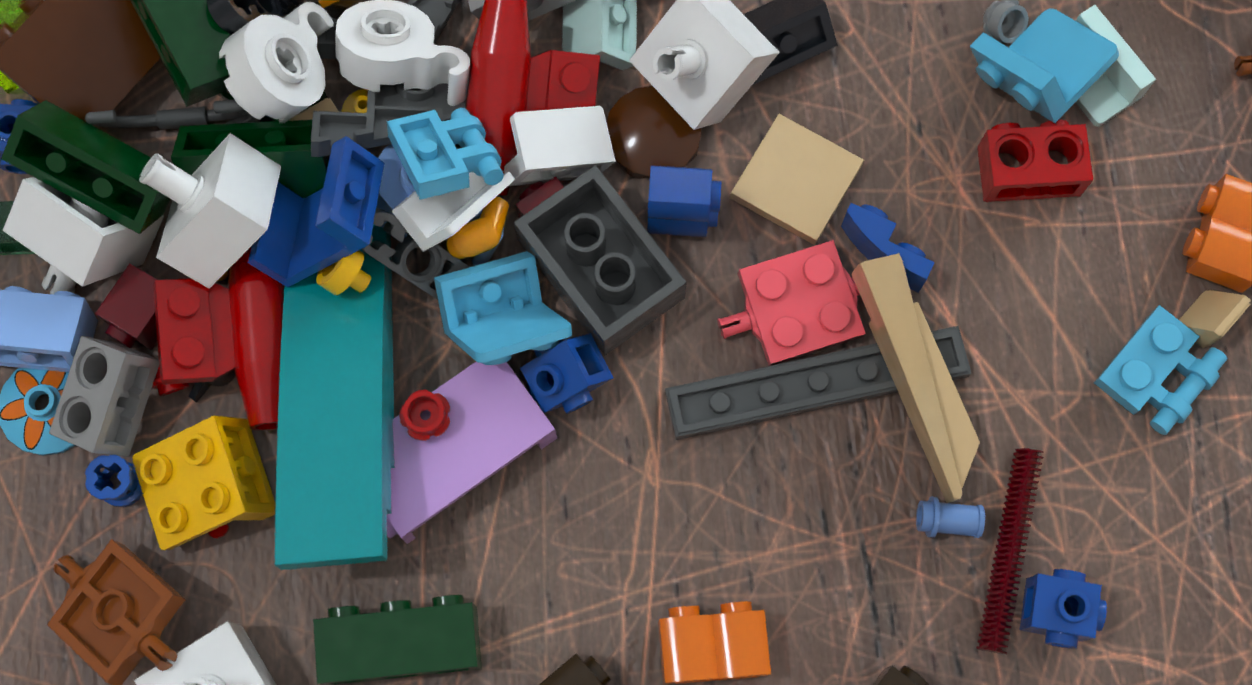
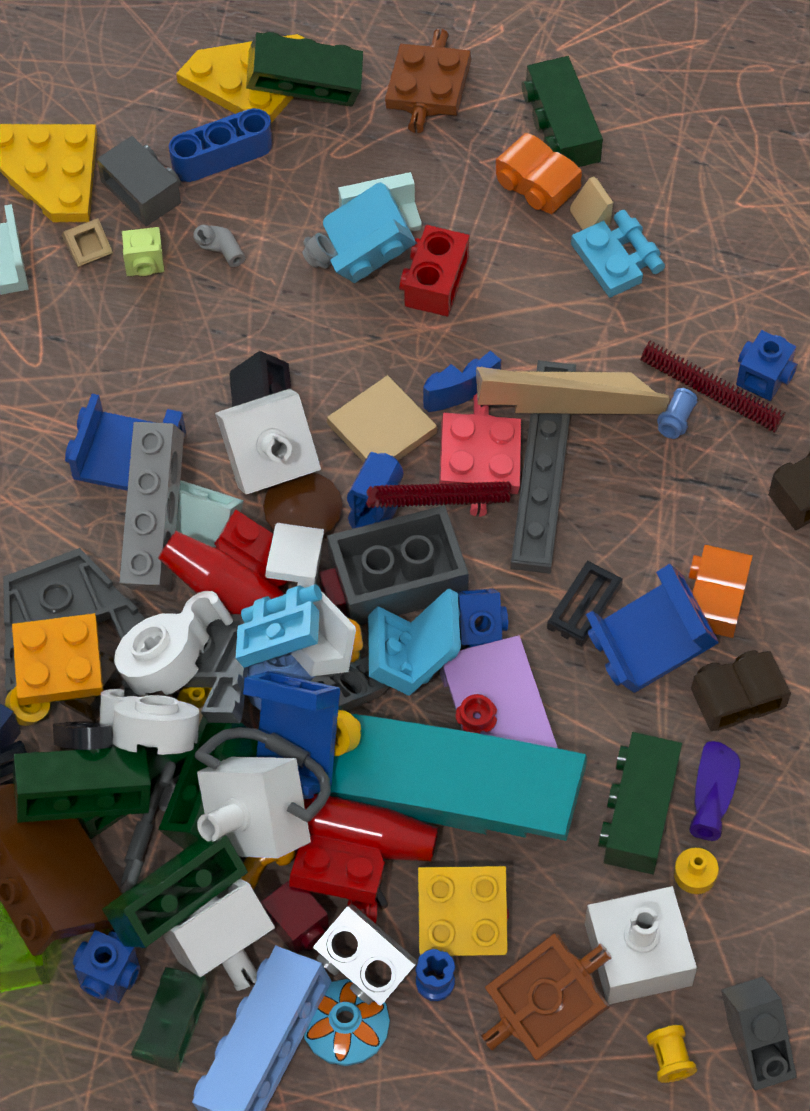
camera: 70 degrees left, 15 degrees down
(301, 223) = (281, 747): none -> dark grey piece
(619, 583) = (652, 633): none -> blue panel
(641, 512) = (569, 629): none -> black tile
(699, 270) = (438, 494): none -> dark red axle

